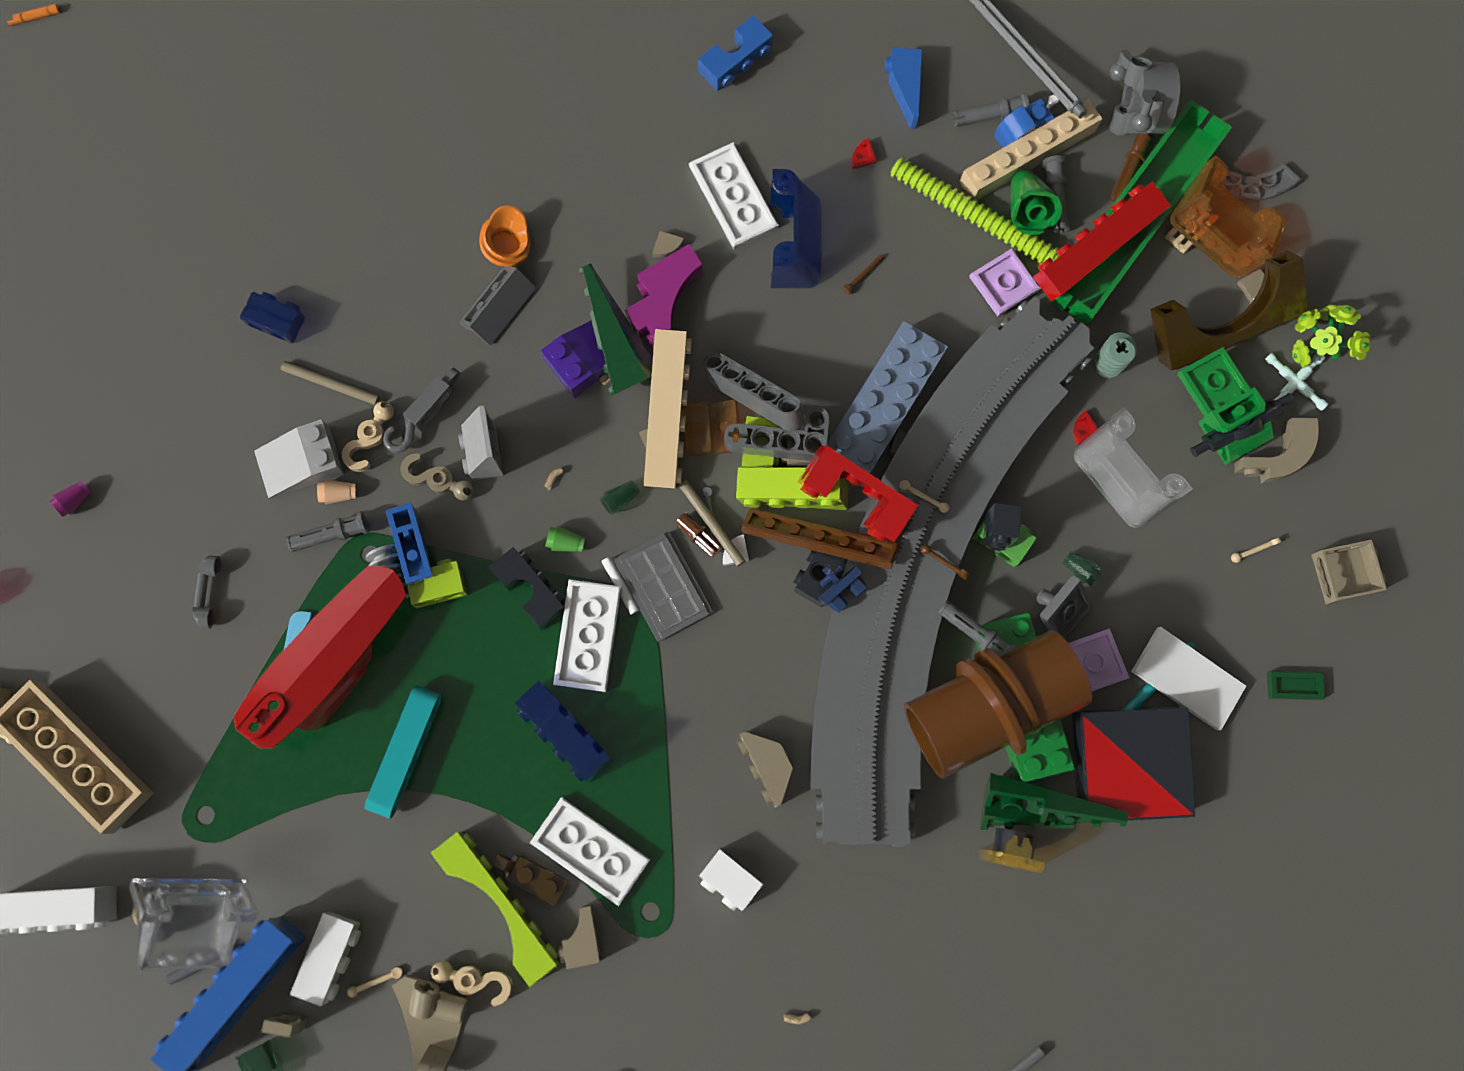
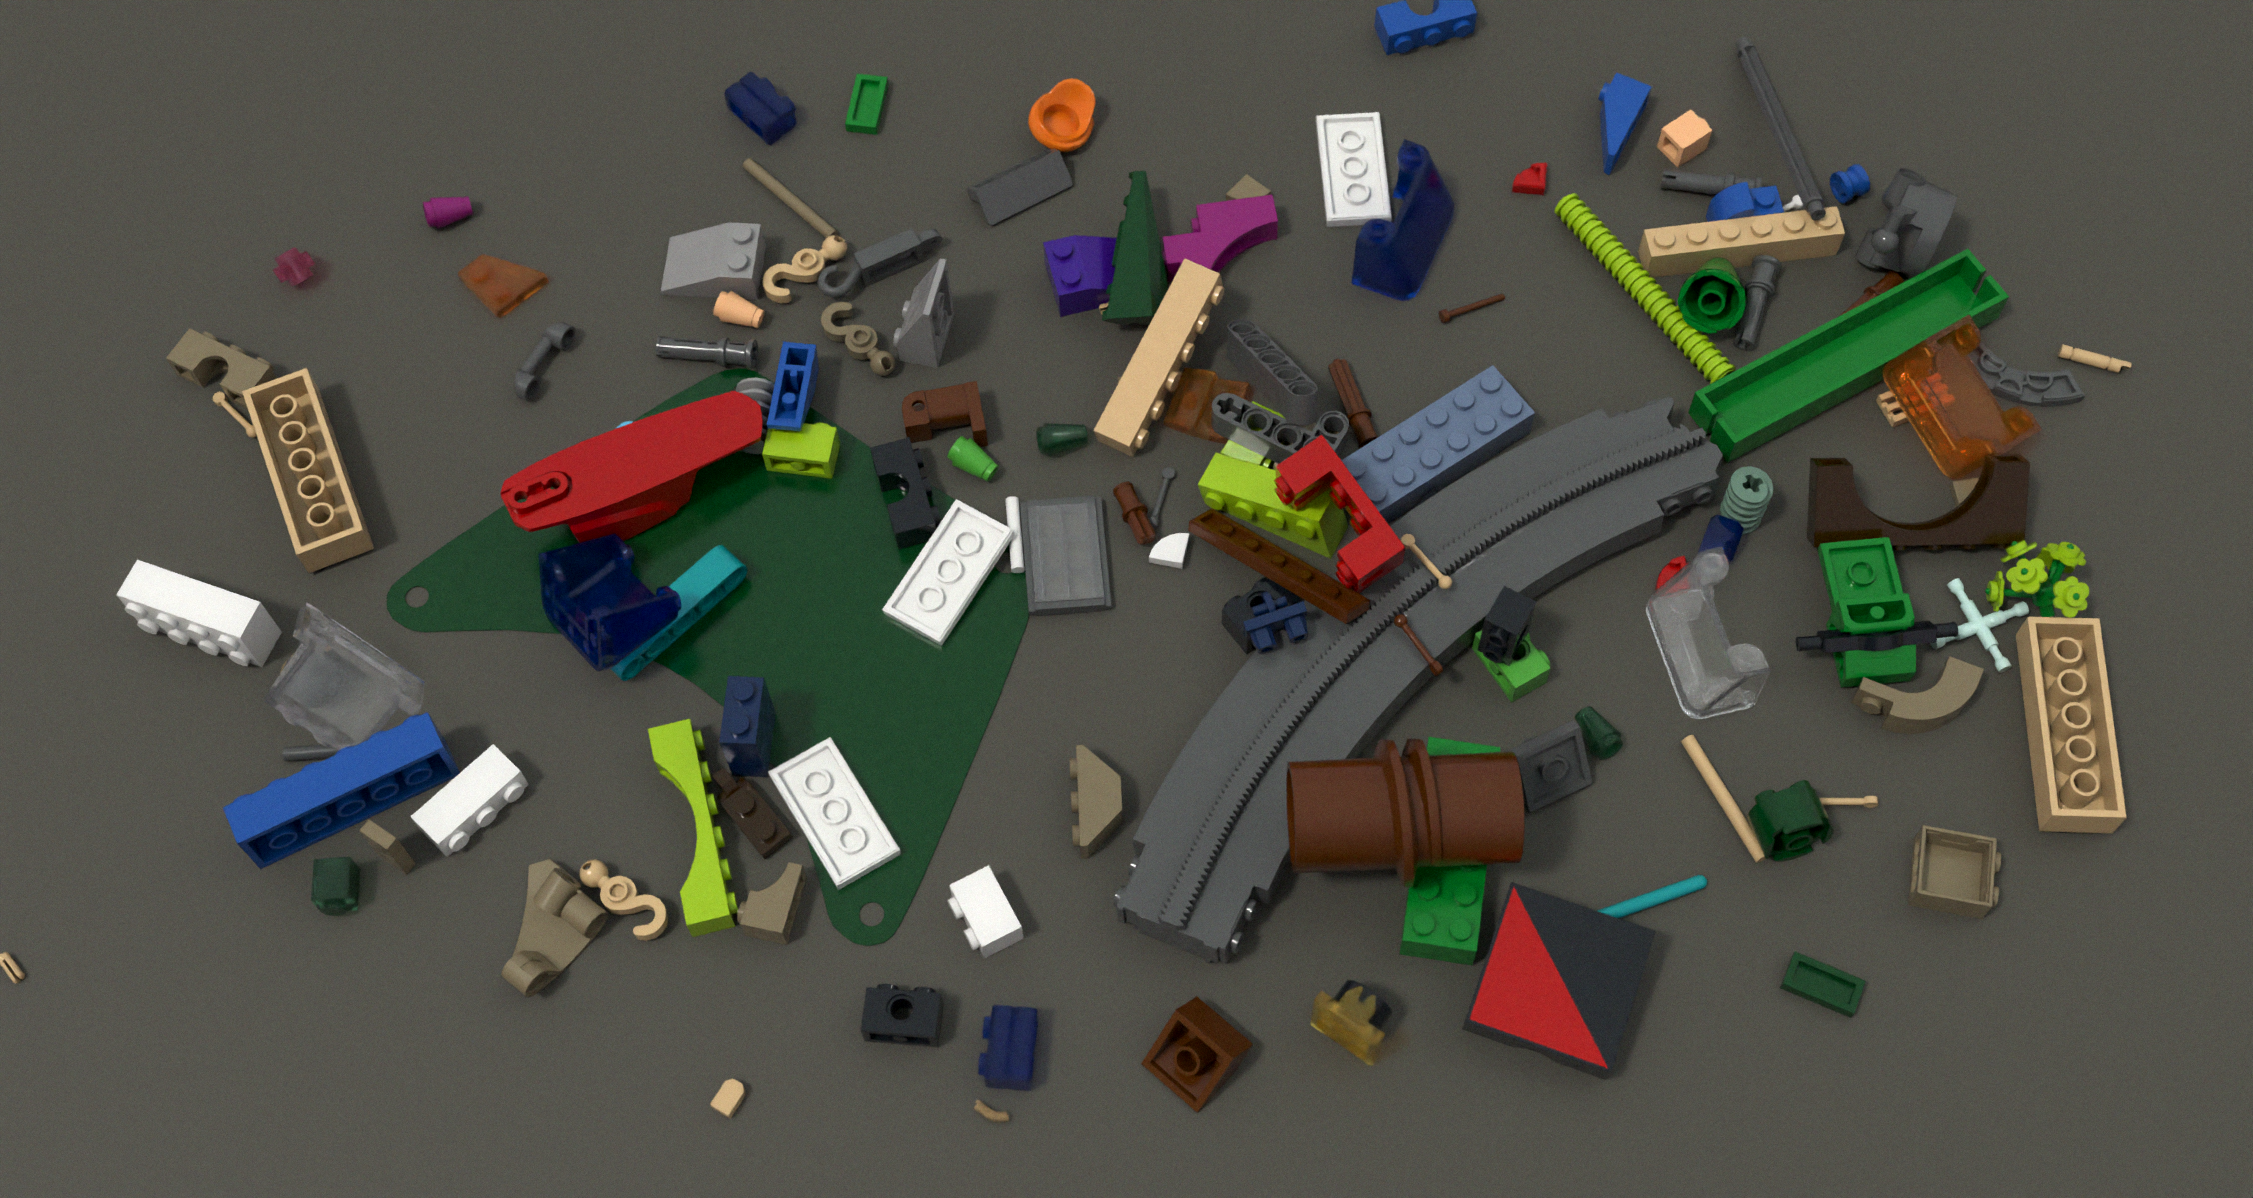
camera: 30 degrees right, 15 degrees down
(142, 540) = (501, 283): none -> clear orange wing
(351, 280) = (866, 104): none -> green tile
(351, 770) = (601, 602): none -> clear blue windscreen
(396, 973) = (540, 855): tan hinge -> none
(503, 822) = (747, 726): none -> dark blue brick
(526, 510) = (944, 409): none -> reddish brown piece
(558, 471) = (992, 390): tan leg -> none
(563, 731) = (869, 664): clear blue wedge -> none
(695, 992) = (918, 1030): none -> black brick
(712, 523) = (1157, 507): dark tan bar -> none
(791, 970) = (1010, 1047): none -> clear blue brick
(814, 385) = (1352, 401): none -> reddish brown axle
(917, 917) = (1196, 1053): none -> reddish brown slope
(949, 610) = (1399, 704): dark grey pin -> none
(958, 81) = (1684, 138): none -> light nougat brick
(1004, 282) = (1643, 374): lavender plate -> none
(1020, 803) = (1413, 980): dark green wedge -> none
(1085, 73) = (1849, 183): none -> blue wheel
(1100, 659) = (1563, 848): lavender plate -> none
(1101, 241) = (1779, 358): red brick -> none
(1105, 393) = (1722, 533): none -> clear blue rock
(1182, 579) = (1723, 797): none -> tan bar
(1188, 678) = (1686, 918): white tile -> none
(1235, 583) = (1789, 821): none -> dark green brick
(1295, 147) = (2093, 359): none -> tan wheel
(1385, 434) = (2070, 725): none -> tan brick

